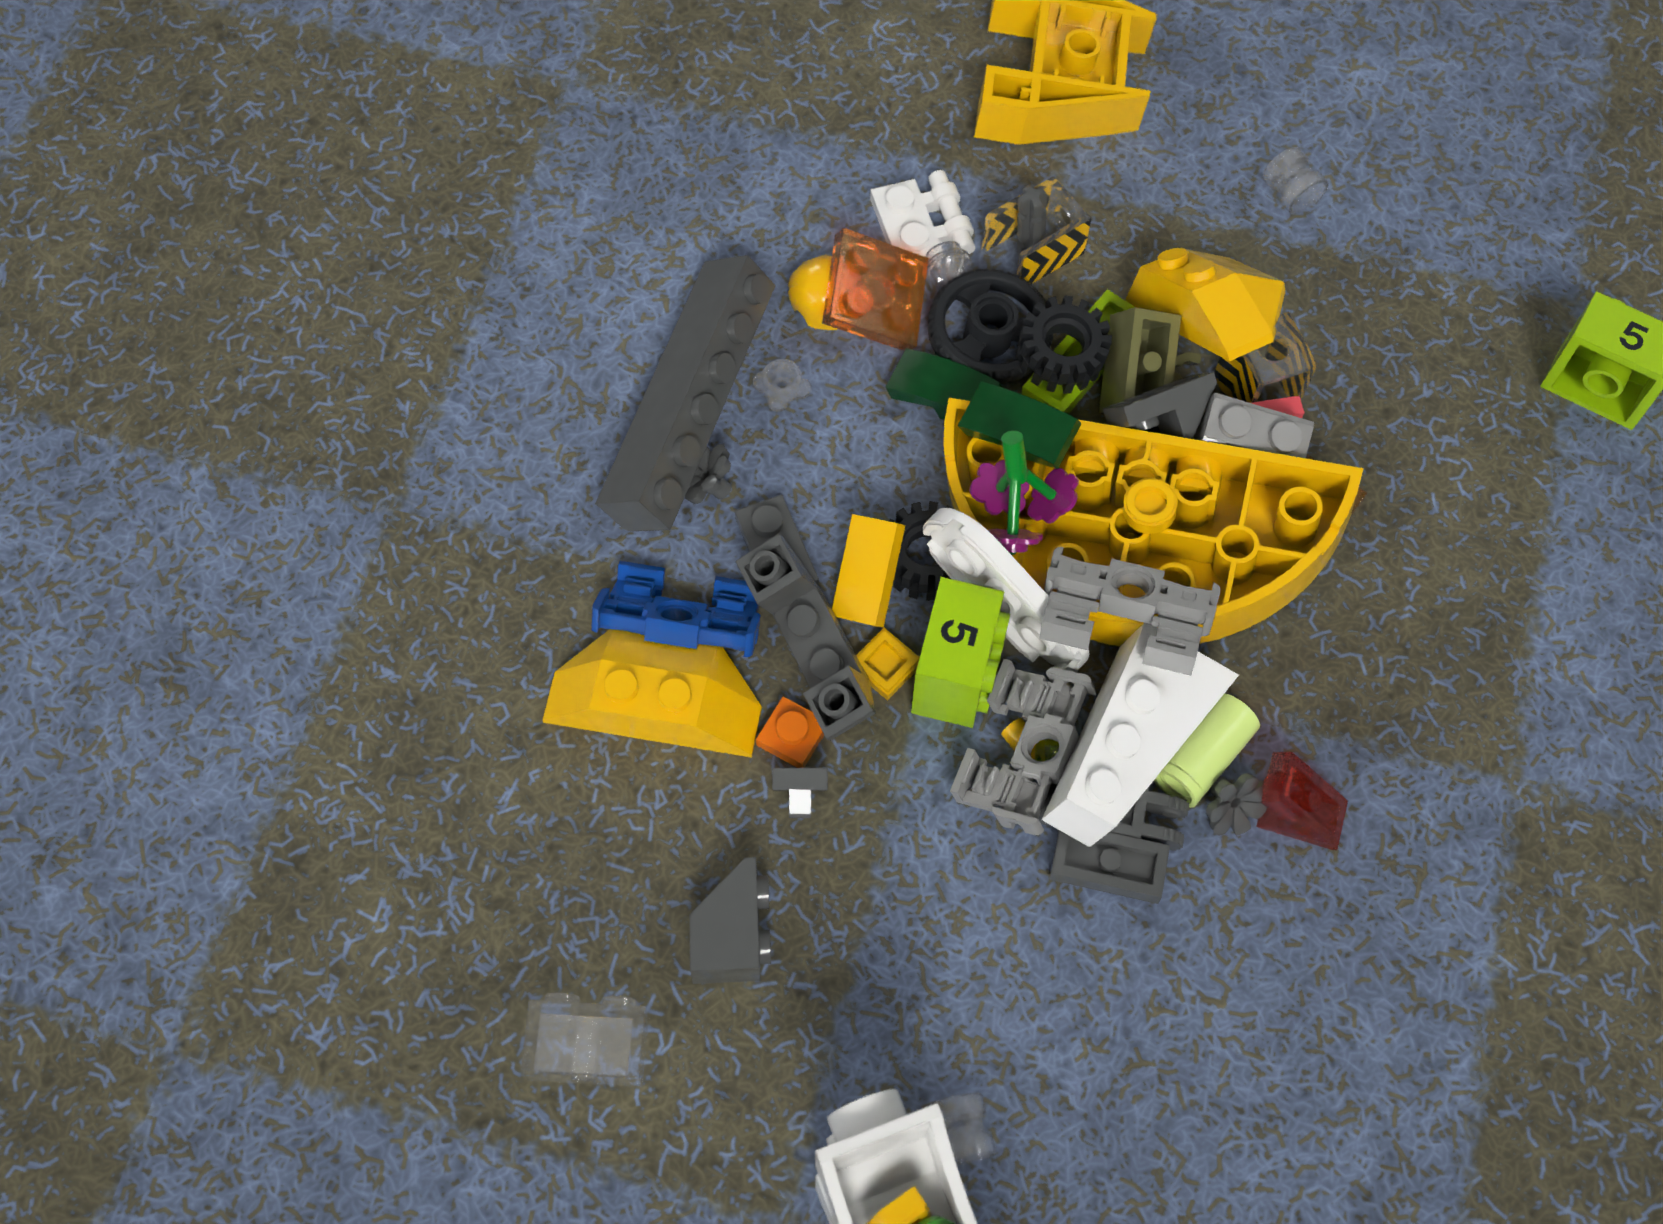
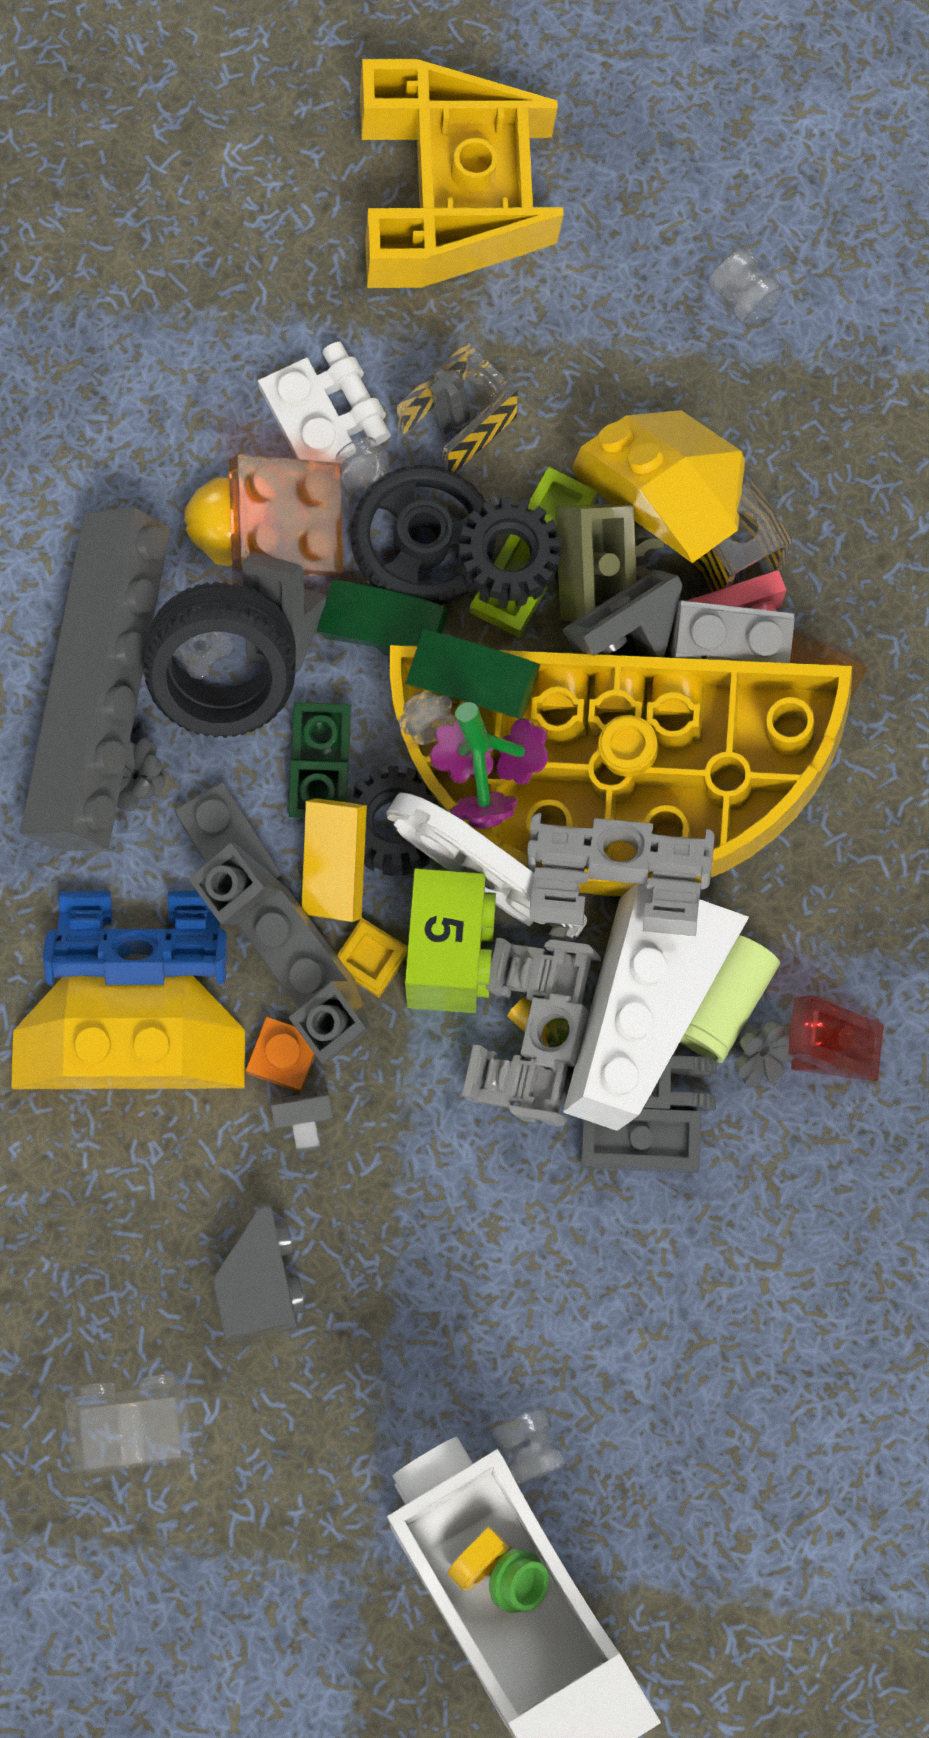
camera: 10 degrees left, 10 degrees up
(773, 430) = (210, 708): none -> black tyre
(854, 363) = (284, 586): none -> dark grey slope
(870, 483) = (319, 754): none -> dark green slope
(969, 453) = (425, 715): none -> clear plate

